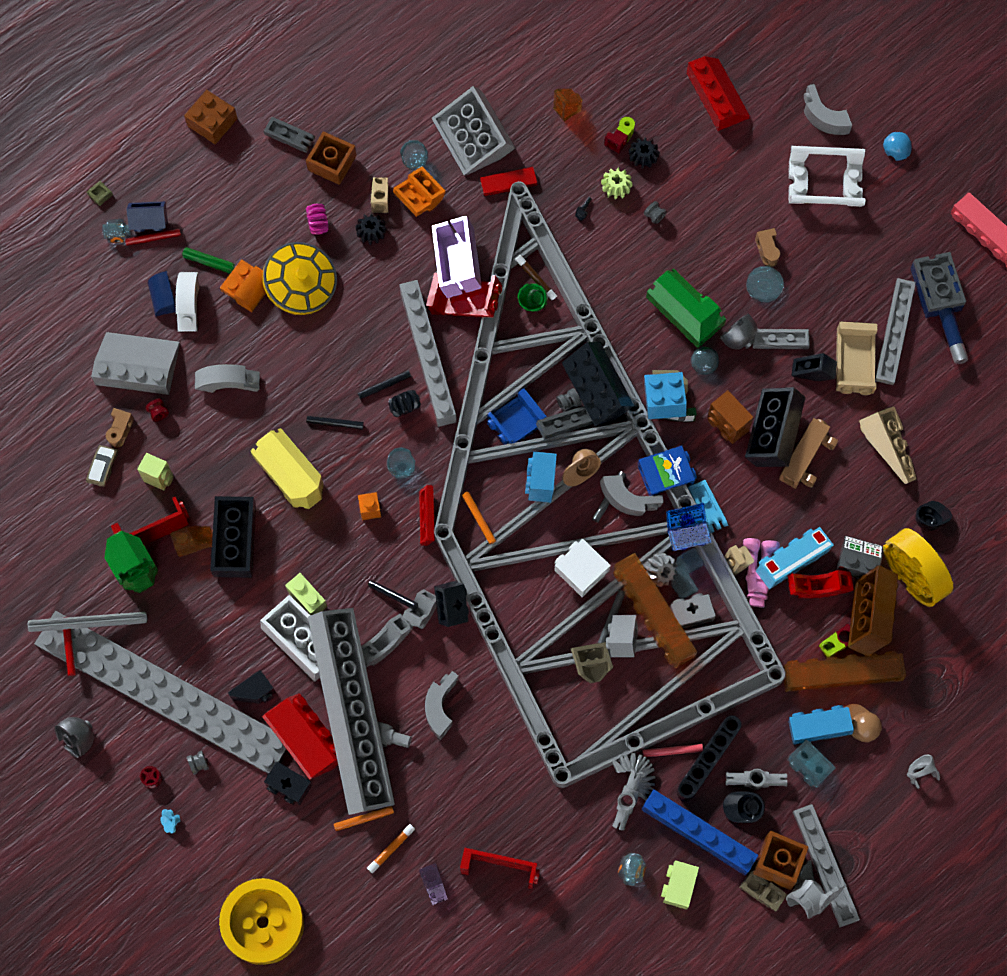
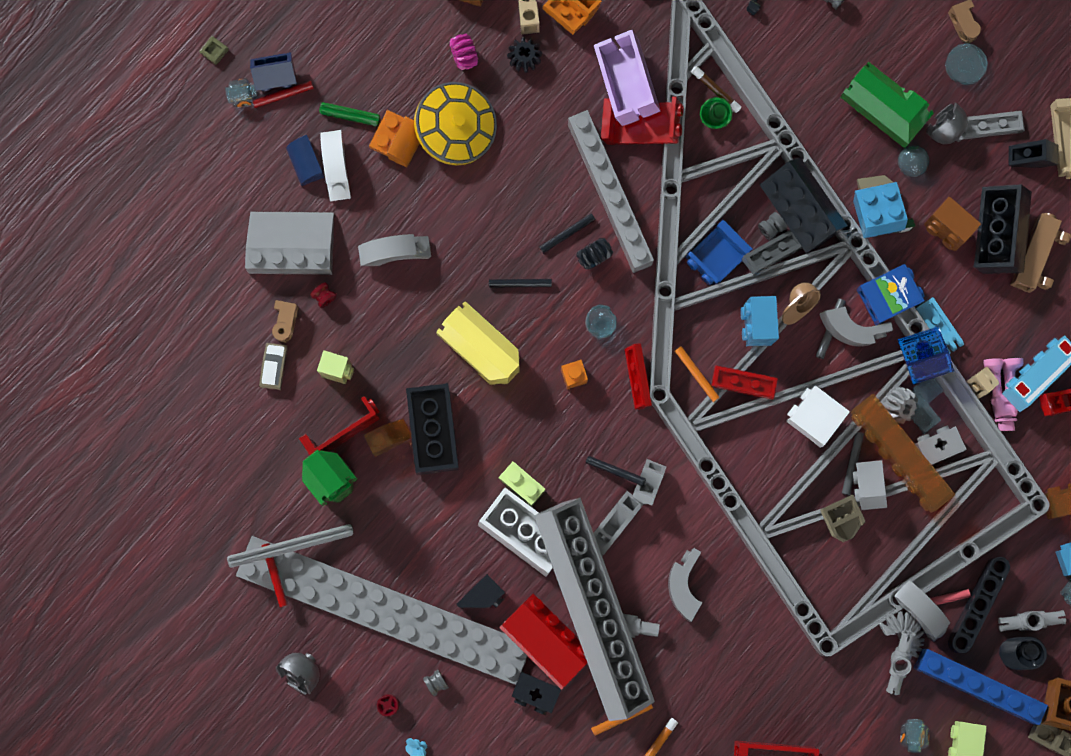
camera: 10 degrees left, 10 degrees up
(451, 603) = (682, 474): black brick -> none
(521, 531) = (744, 382): none -> red tile
(654, 753) = (923, 610): none -> light grey arch

